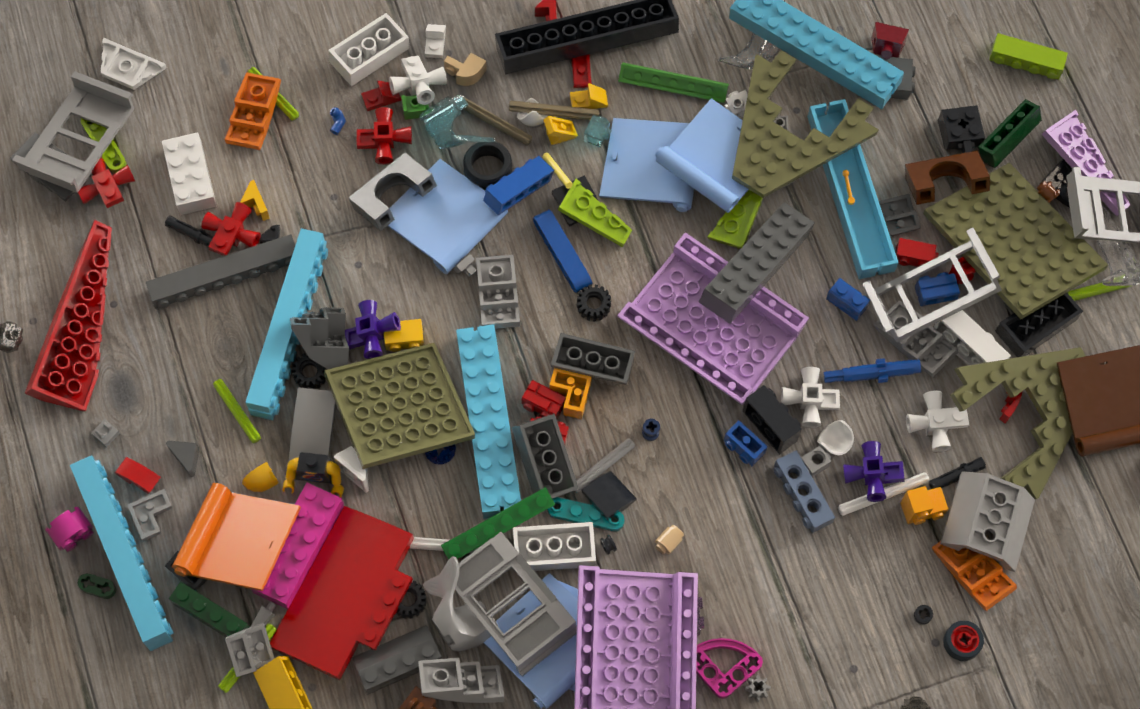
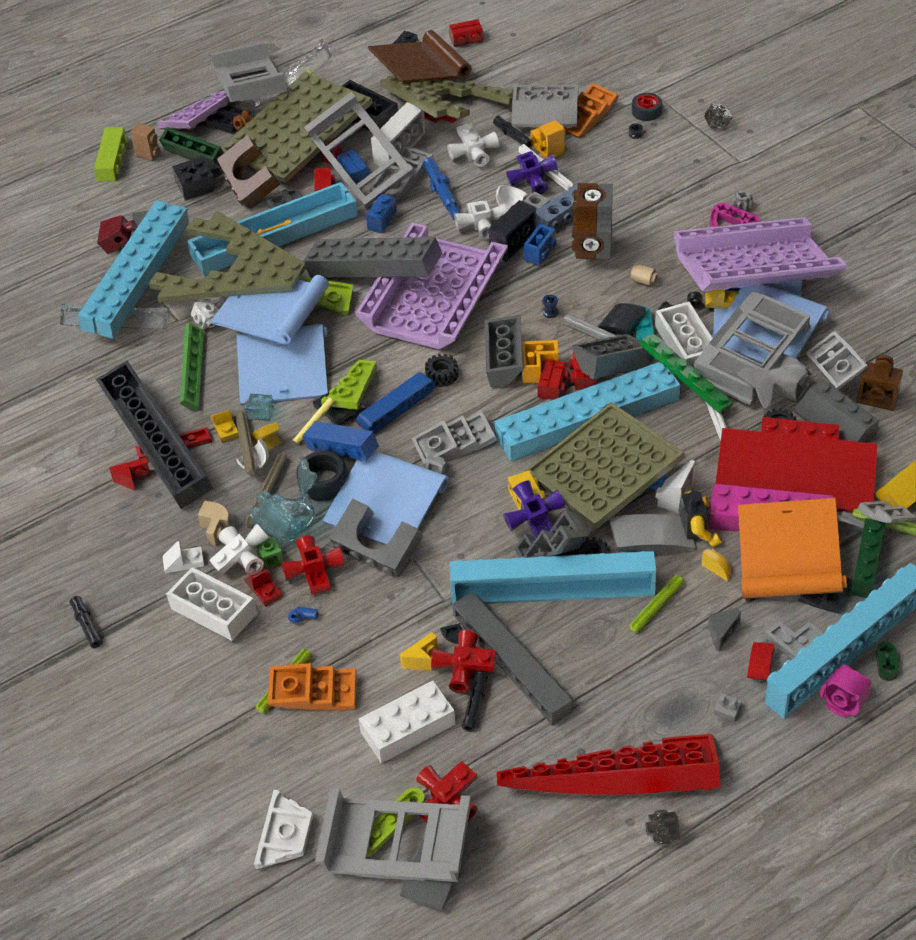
camera: 100 degrees left, 20 degrees down
(734, 492) = (592, 221): none -> piece
(1031, 86) = (145, 141): none -> medium nougat brick

